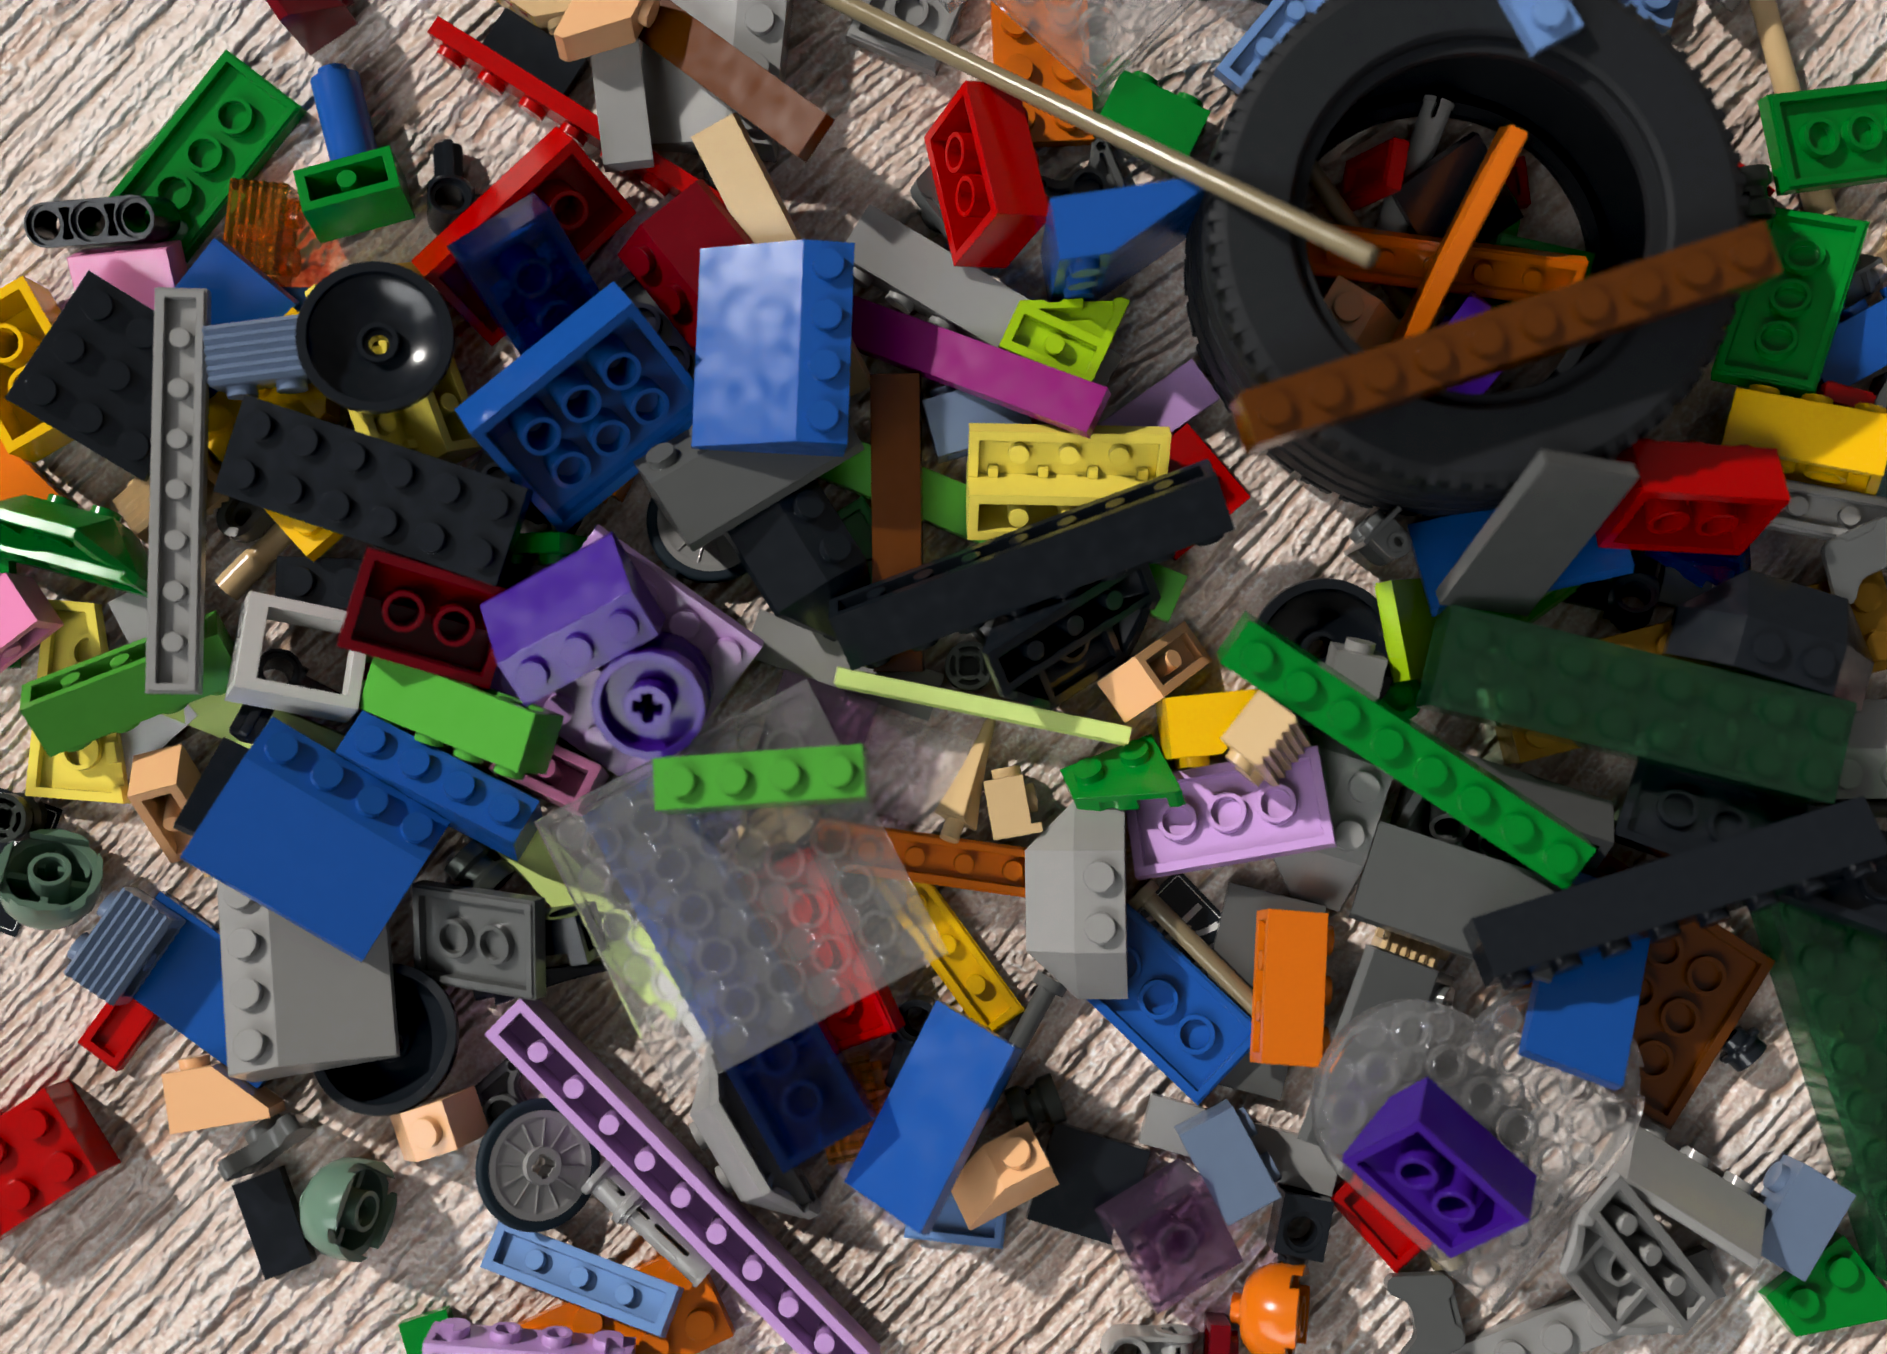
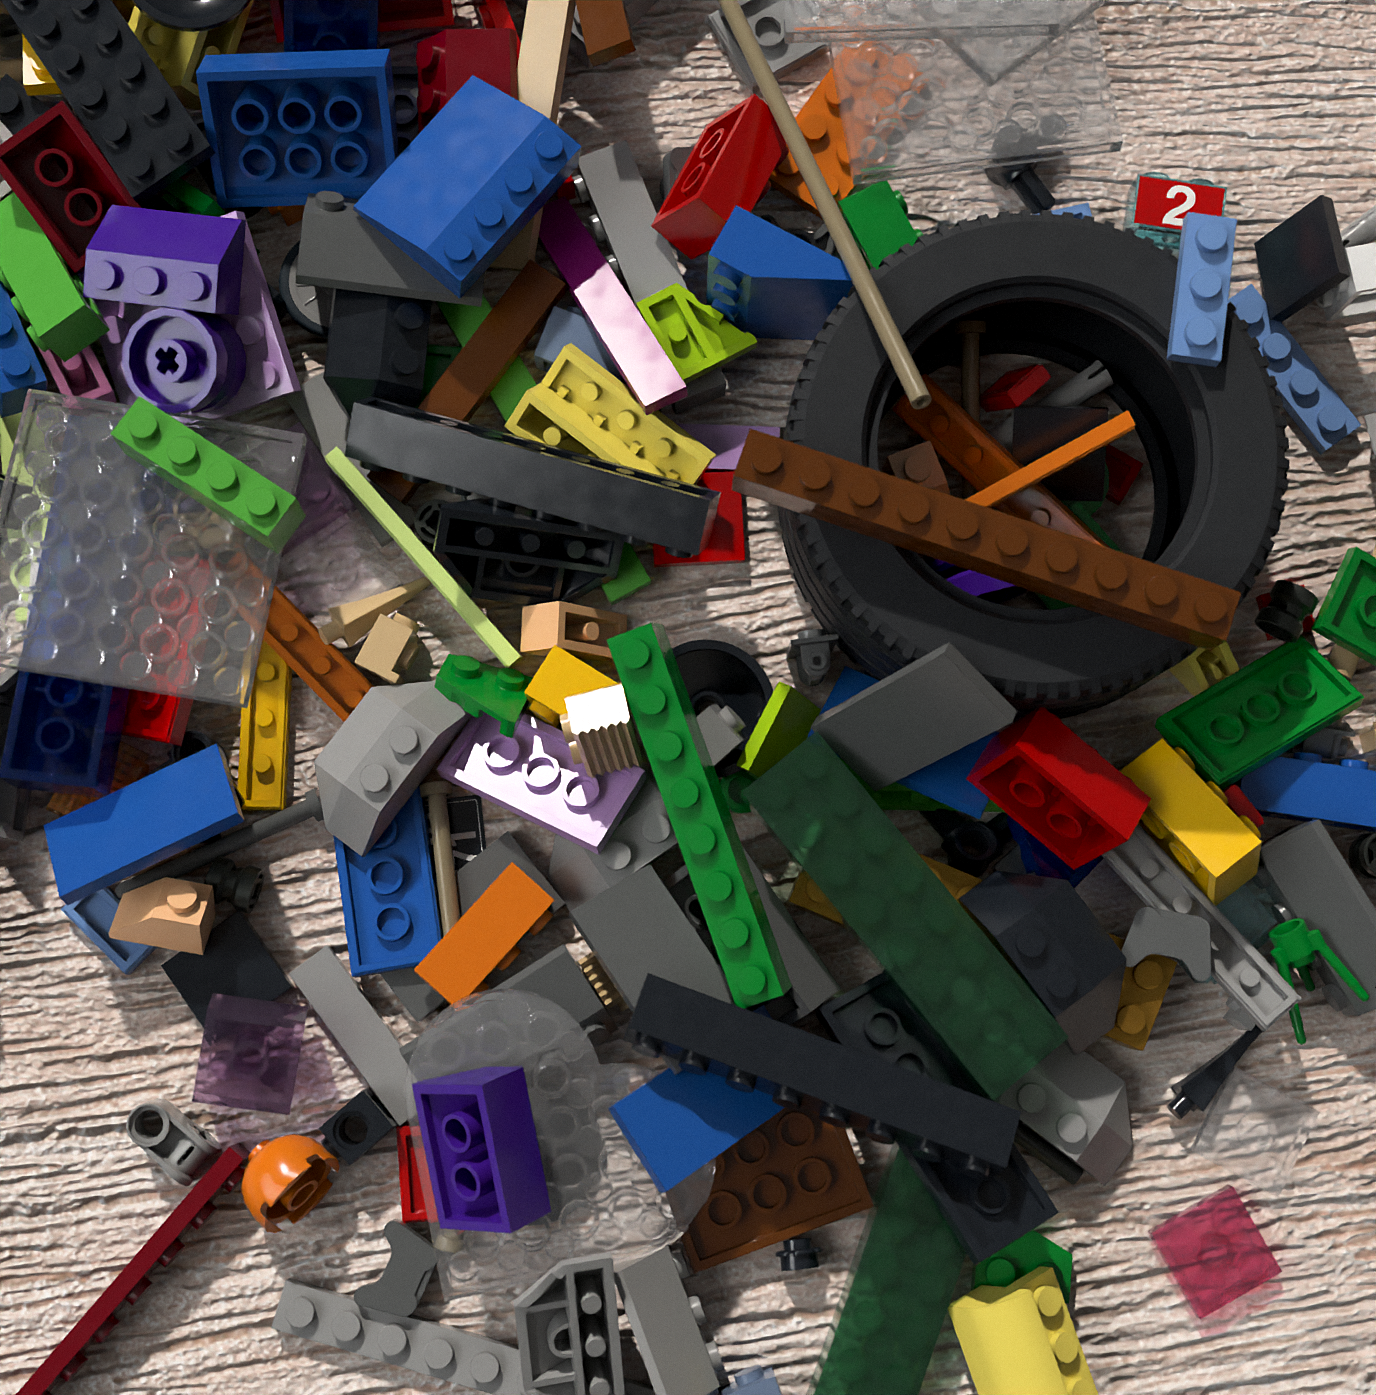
camera: 35 degrees right, 5 degrees down
(1229, 1161) = (340, 1034): sand blue brick -> none

